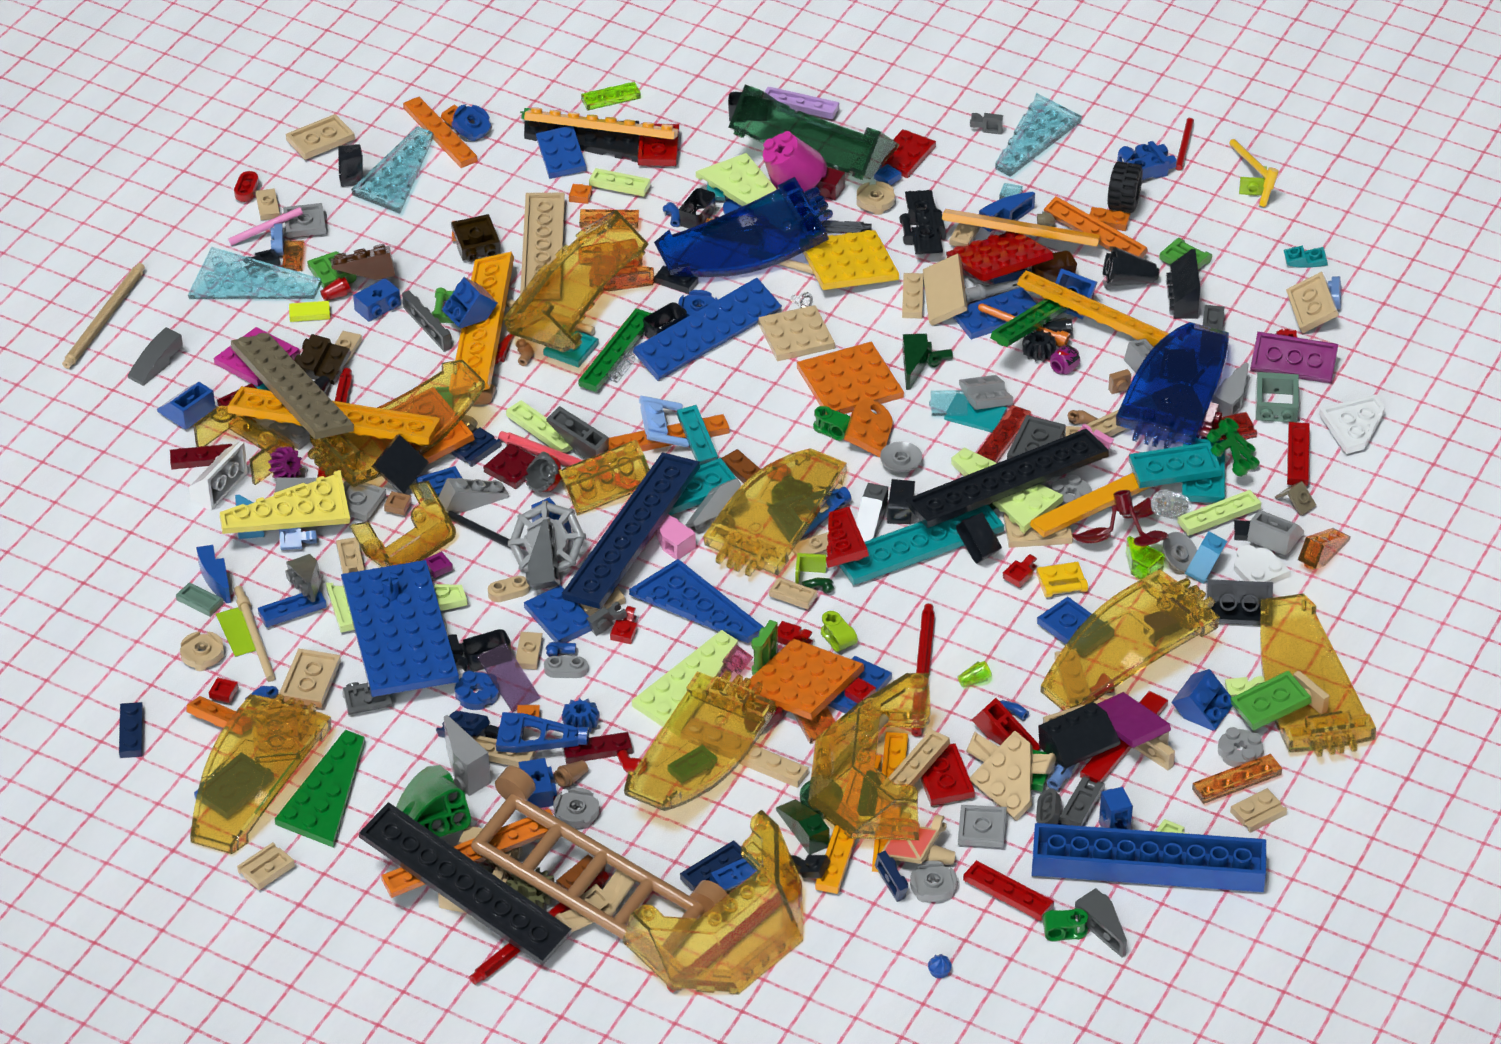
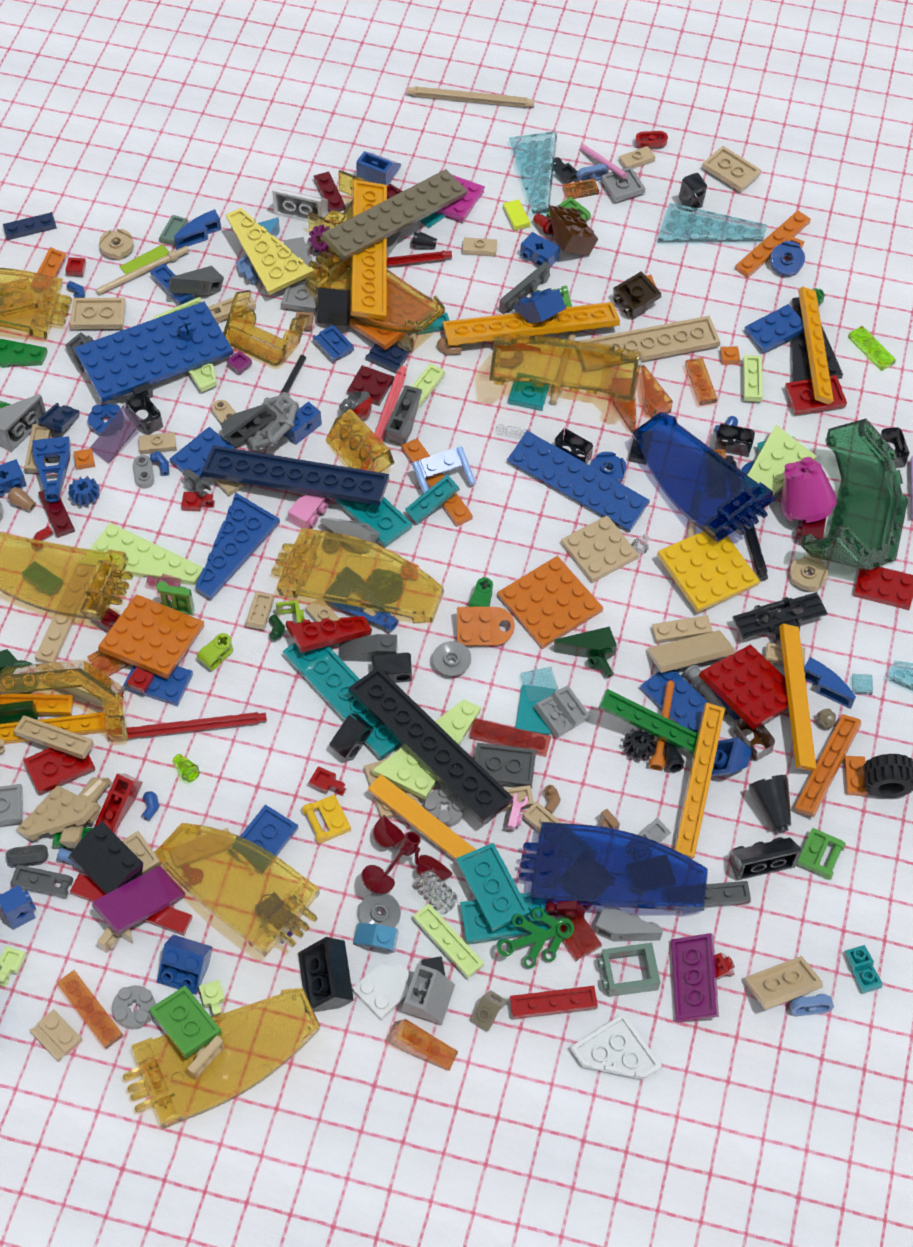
camera: 75 degrees right, 15 degrees up
(156, 356) = (429, 136): dark grey slope -> none
(322, 358) = (455, 233): dark brown plate -> none
(468, 494) = (325, 364): light grey slope -> none
(613, 352) = (525, 420): green plate -> none
(740, 465) = (412, 543): dark orange plate -> none
(789, 631) = (212, 618): red plate -> none
(887, 175) = (843, 576): blue plate -> none
(1064, 359) = (627, 770): magenta head -> none
(1143, 559) = (353, 884): clear neon green slope -> none

